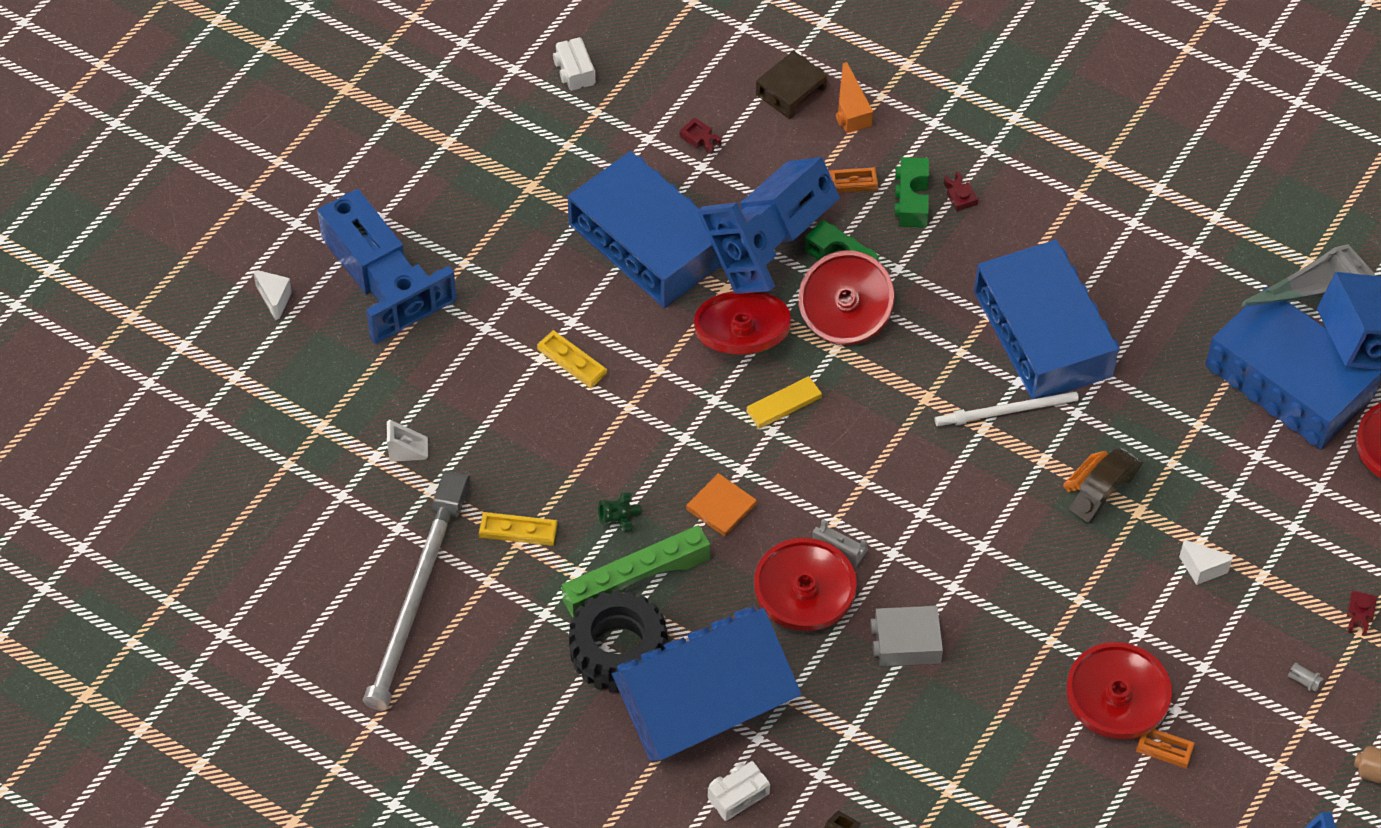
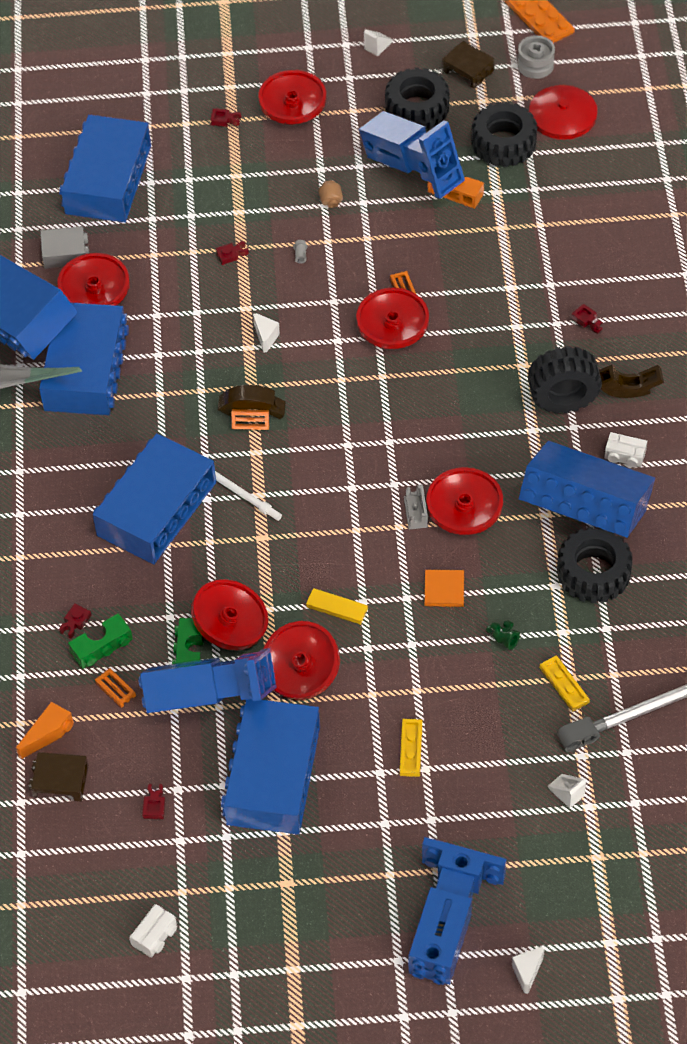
camera: 125 degrees left, 0 degrees up
(674, 553) = (505, 579): bright green arch -> none
(868, 768) = (564, 379): none -> black tyre
(907, 636) = (448, 435): light grey brick -> none

